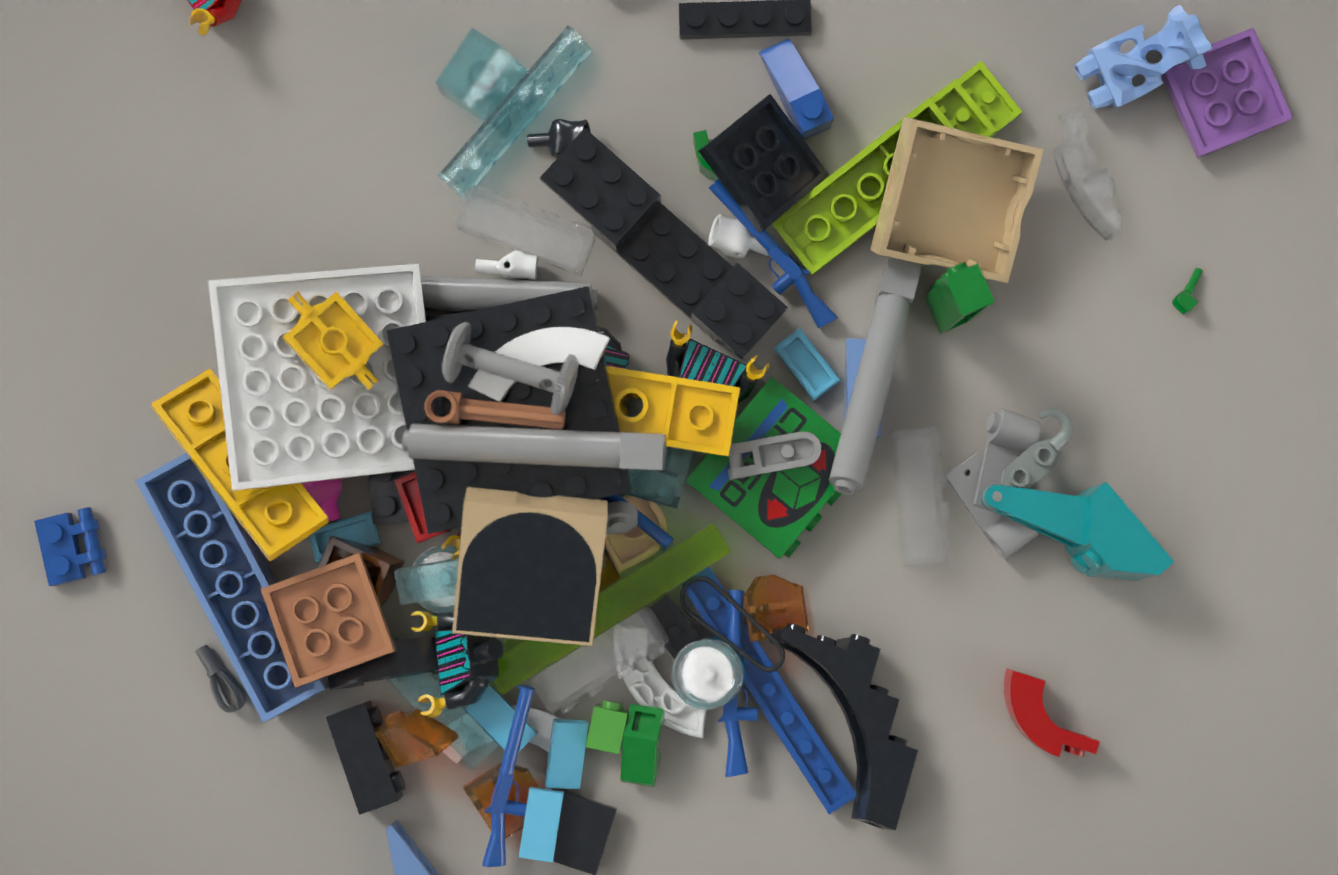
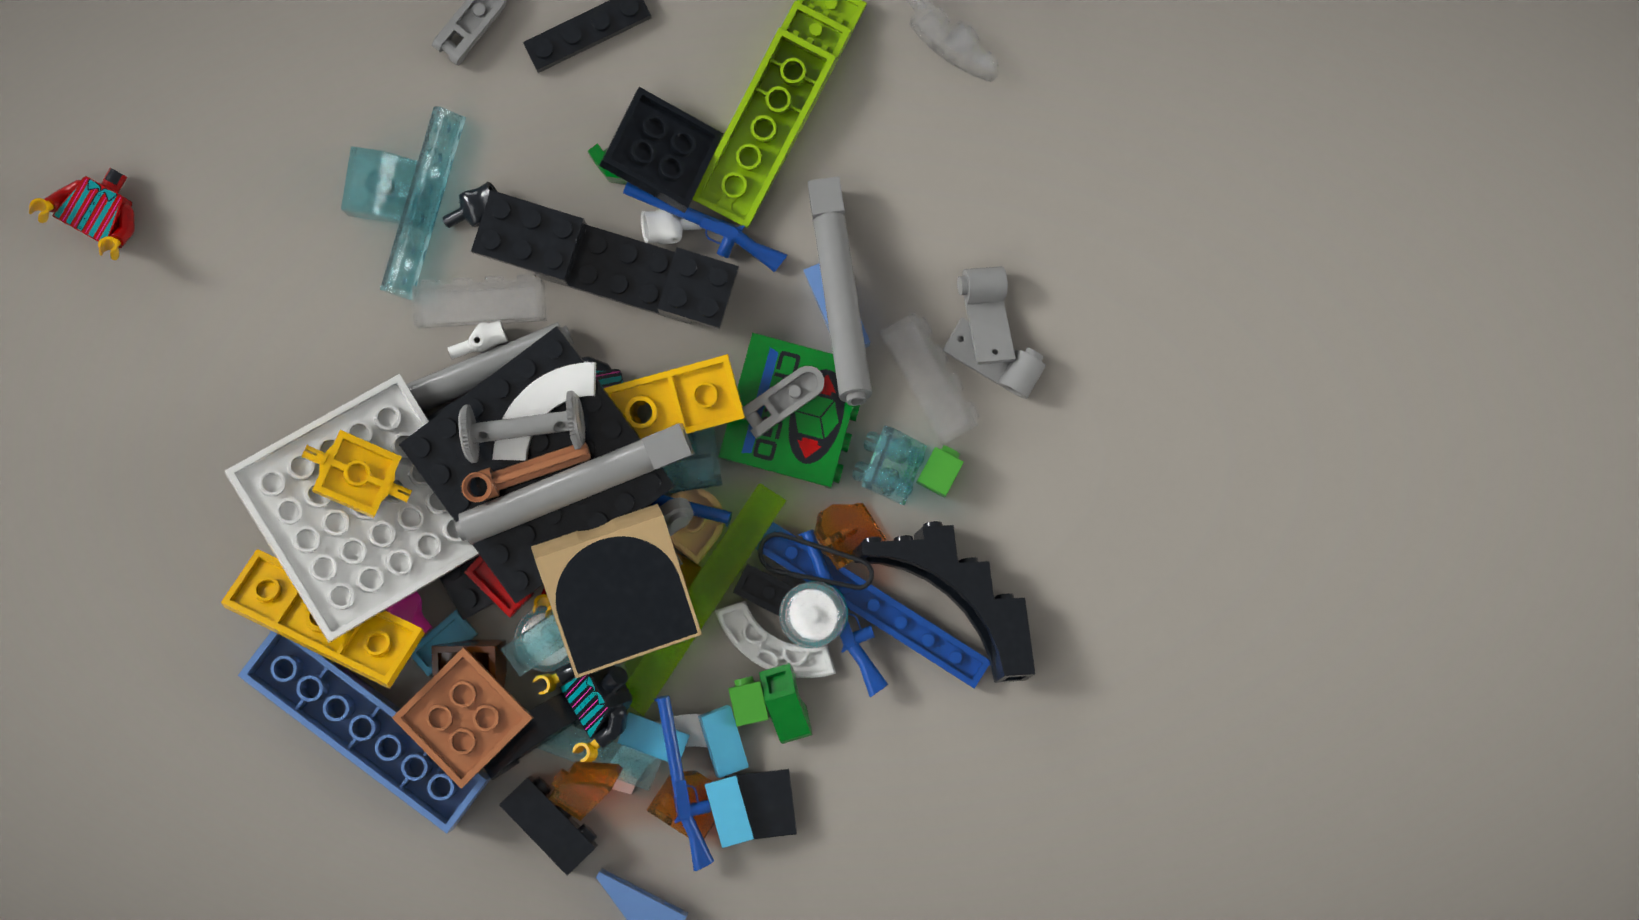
camera: 30 degrees left, 0 degrees up
(61, 549) = (197, 768): blue plate -> none
(213, 671) = (382, 812): dark grey piece -> none
(608, 656) = (711, 651): clear brick -> none
(705, 364) = (692, 347): torso -> none
(797, 89) = (661, 71): slope -> none
(806, 364) = (779, 308): medium azure tile -> none
(848, 564) = (892, 464): none -> clear light blue plate
(891, 590) = (940, 470): none -> bright green brick
(955, 198) = (841, 107): tan tile -> none
(958, 296) = (881, 191): green brick -> none
(1025, 706) = (1106, 523): red arch -> none
(1094, 525) = (1090, 334): teal slope -> none
(1184, 300) = (1081, 103): green hand -> none

